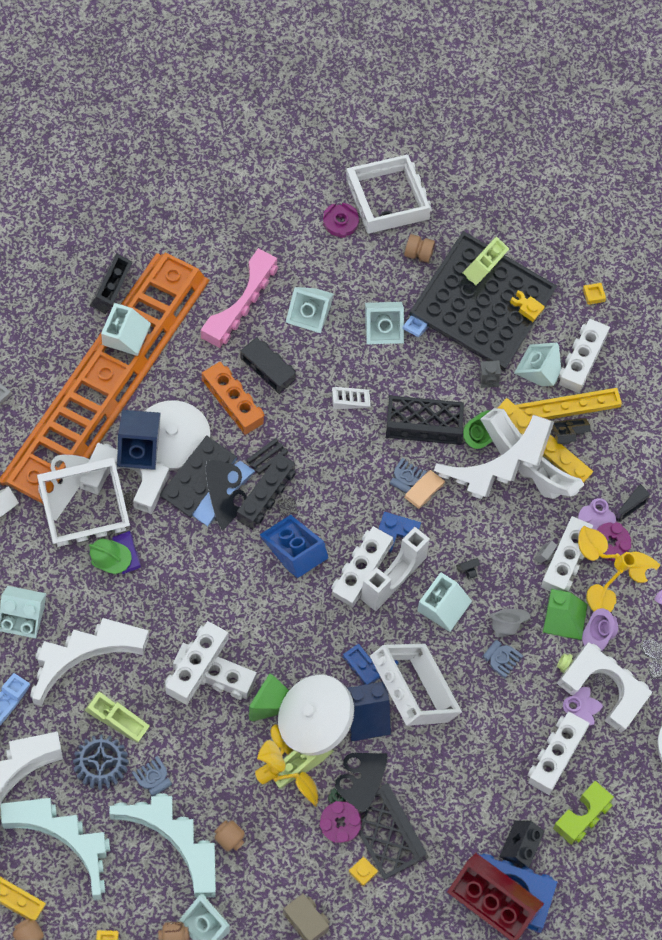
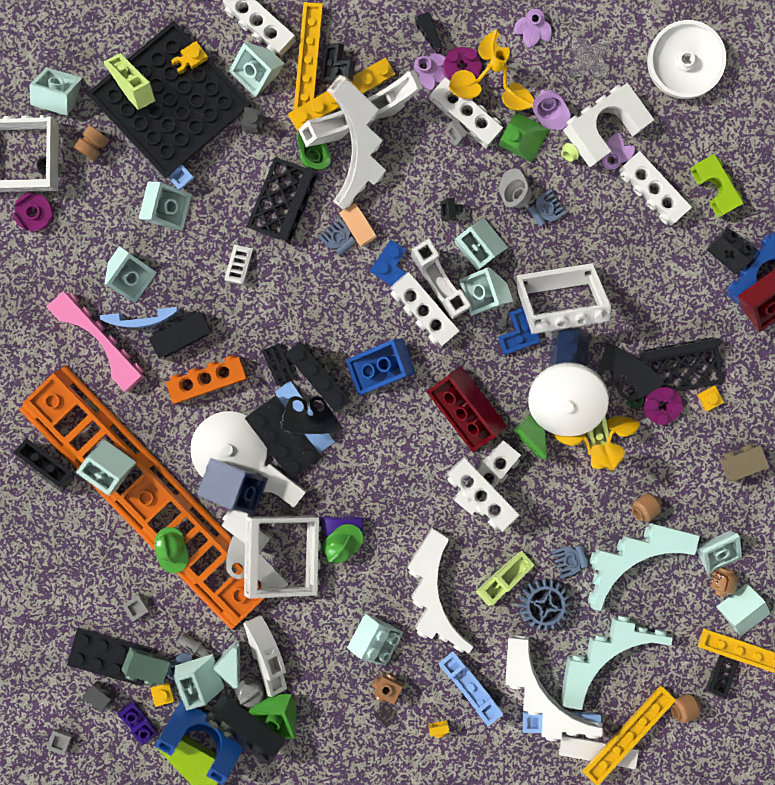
camera: 65 degrees left, 25 degrees up
(62, 405) = (171, 550): none -> bright green piece
(278, 634) = (467, 409): none -> dark red slope
(280, 346) = (163, 315): none -> light blue slope
(399, 620) = (485, 291): none -> light aqua slope
(457, 209) = (55, 91): none -> light aqua slope

